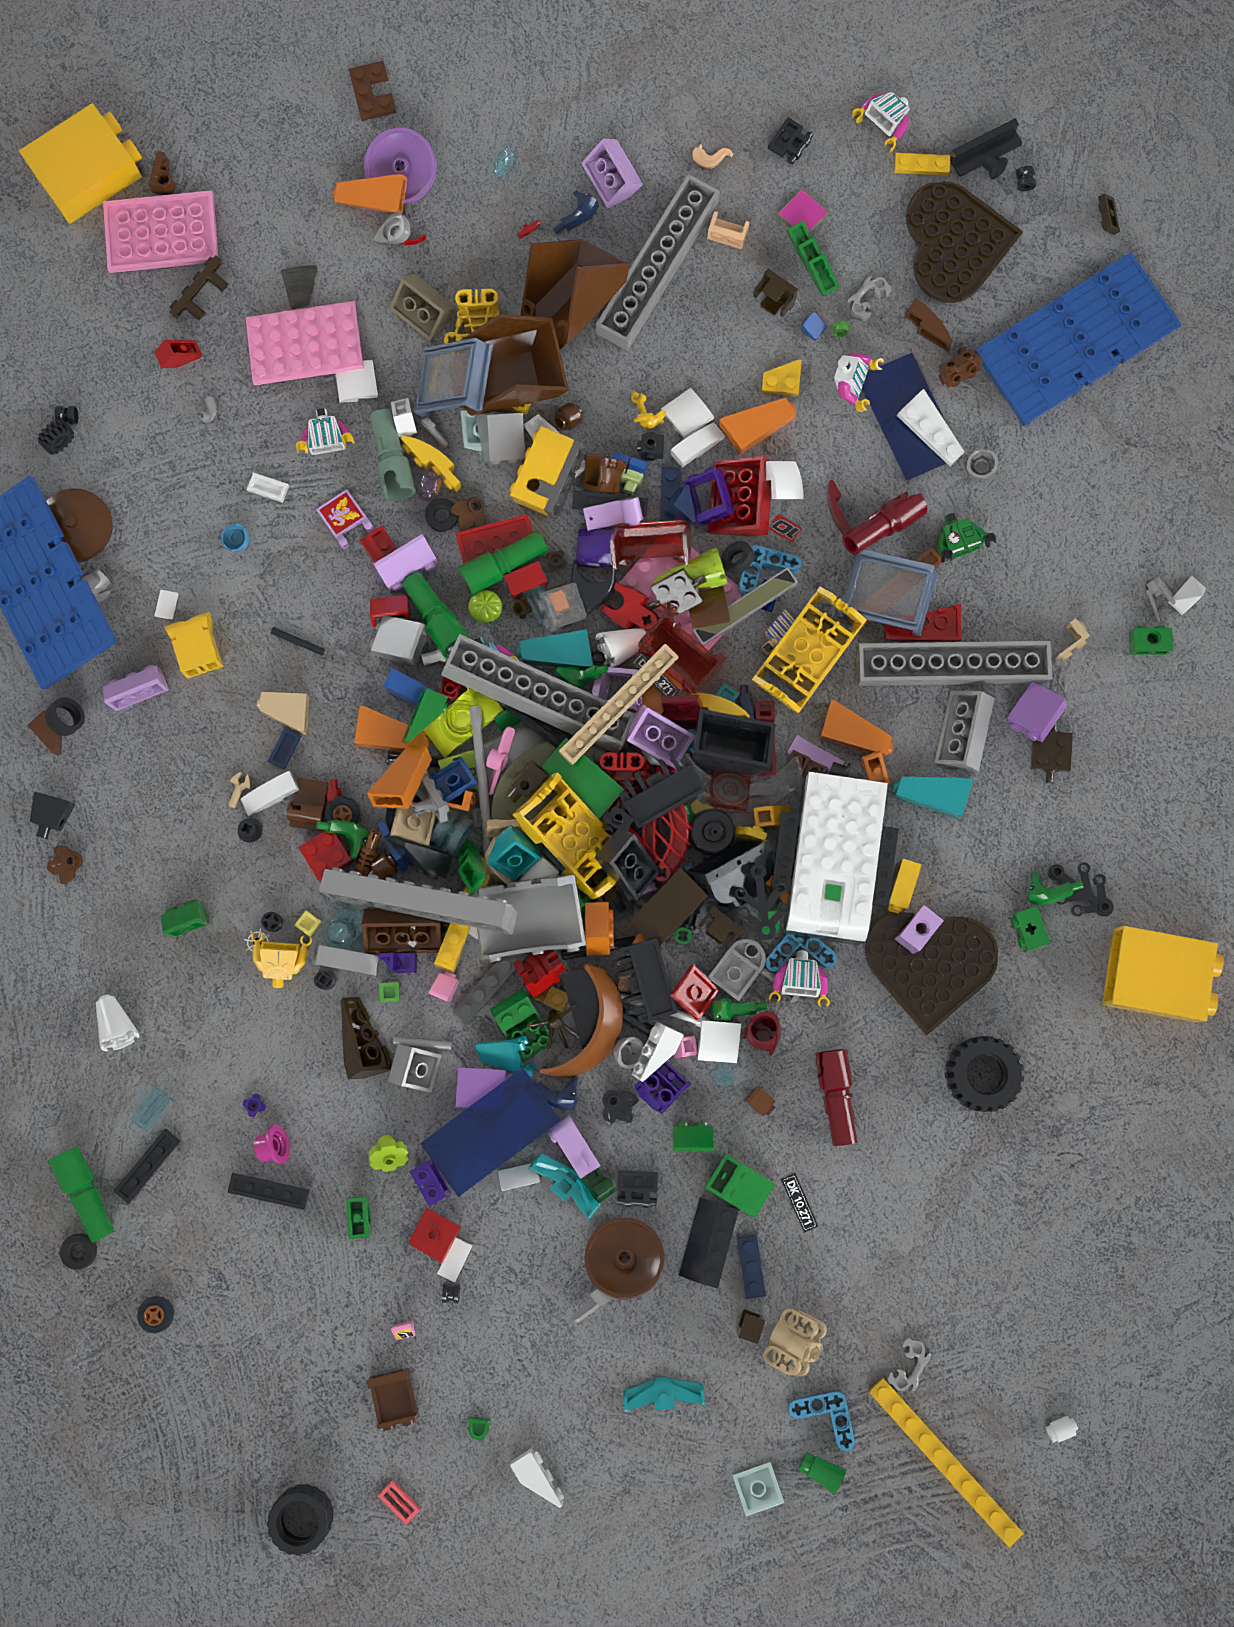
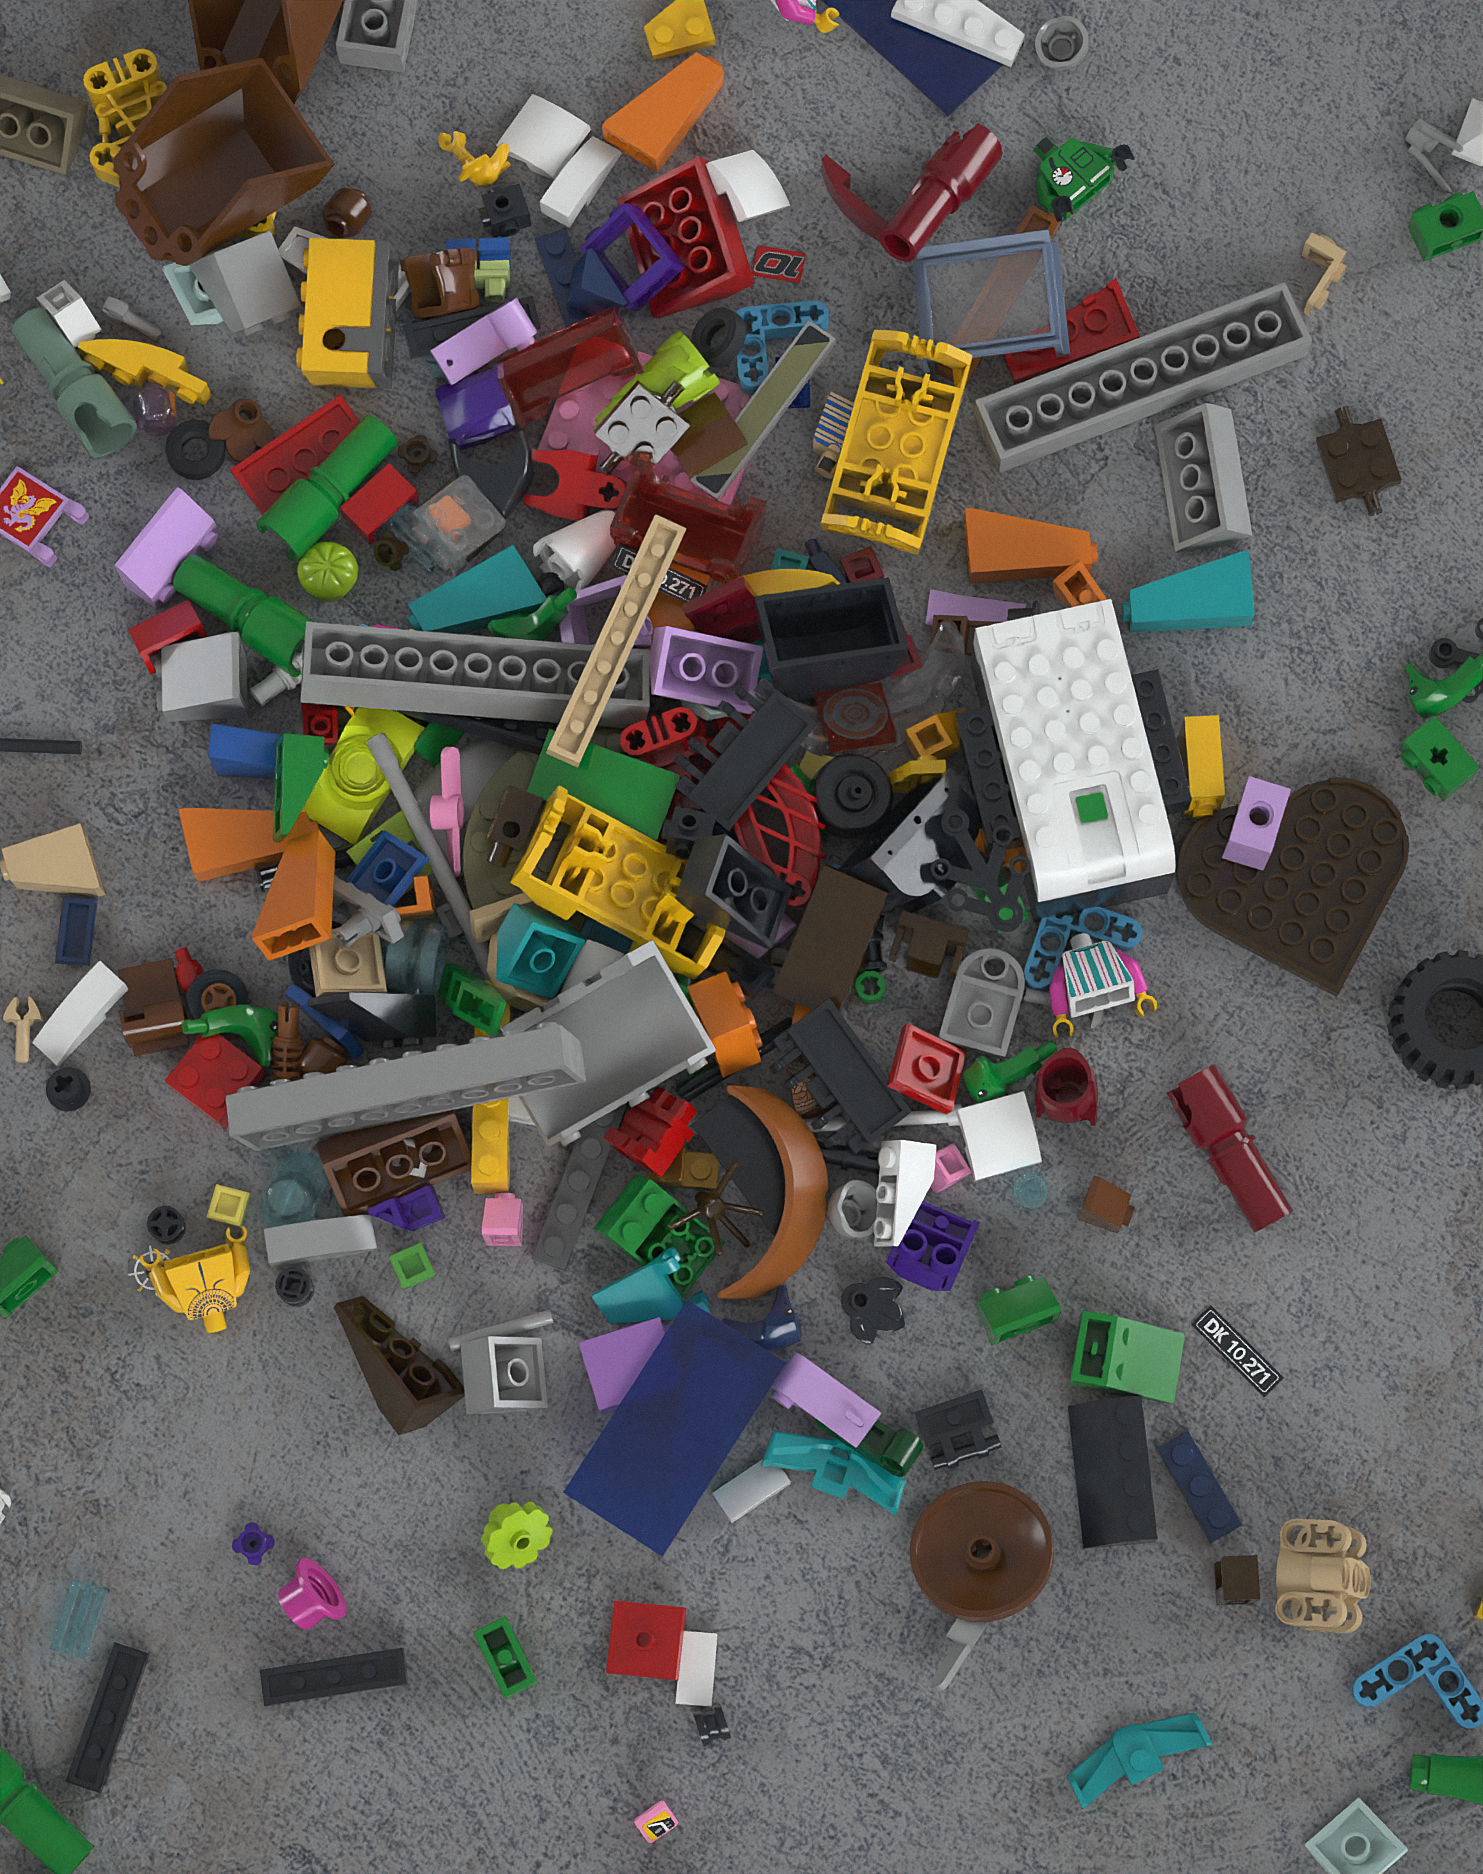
camera: 20 degrees left, 5 degrees down
(378, 544) = (105, 536): red plate -> none
(431, 1179) = (595, 1539): dark purple window -> none
(453, 376) = (131, 211): piece -> none
(1037, 712) = (1309, 405): medium lavender brick -> none

